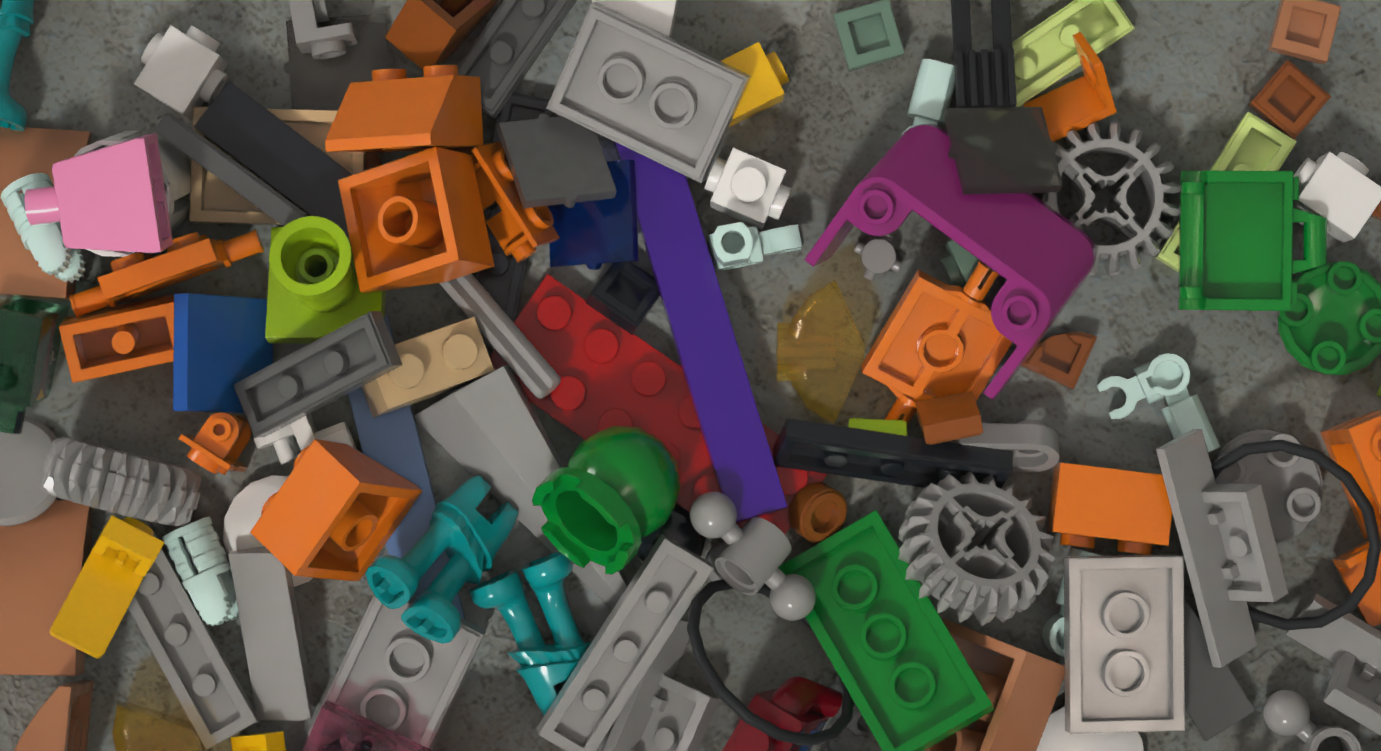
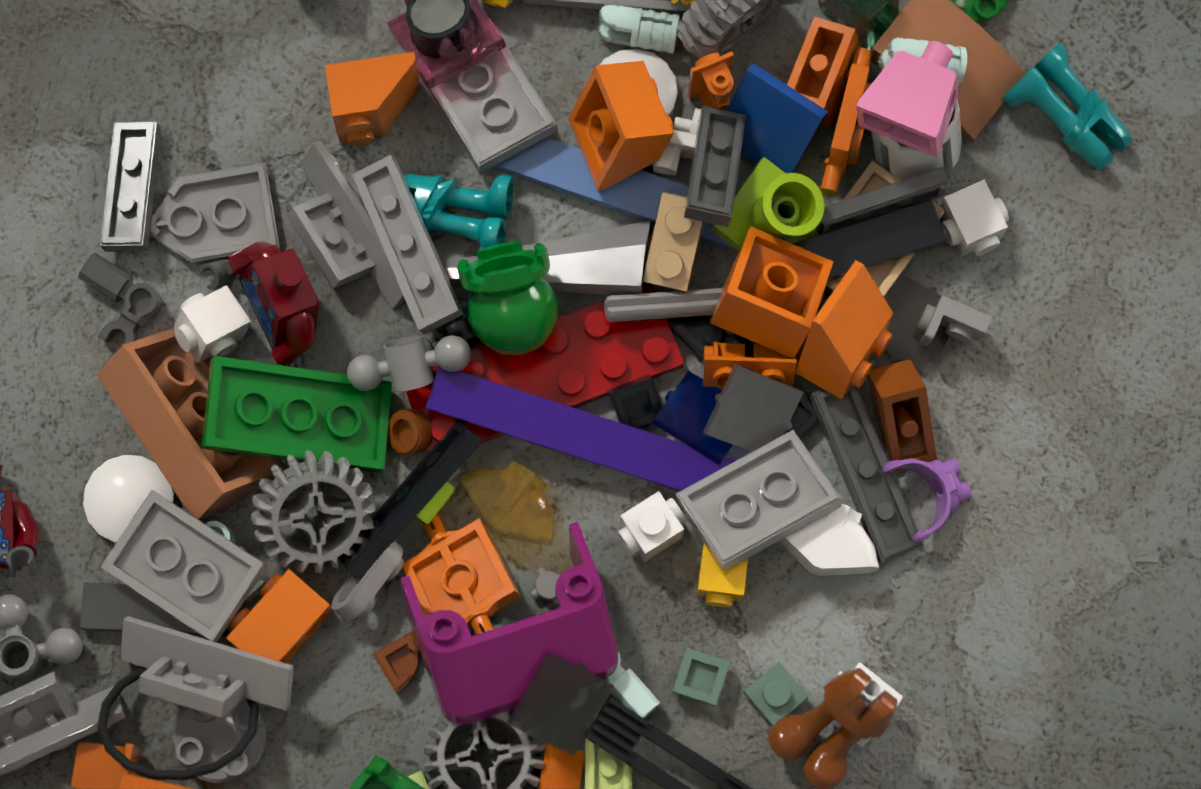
camera: 120 degrees right, 10 degrees down
(272, 636) = (566, 39): light grey slope -> none
(471, 549) = (539, 196): teal piece -> none
(733, 702) = (321, 274): black piece -> none
(743, 246) = (617, 496): light aqua bar -> none
(949, 418) = (409, 551): dark orange tile -> none
(1159, 379) = (335, 721): light aqua bar -> none

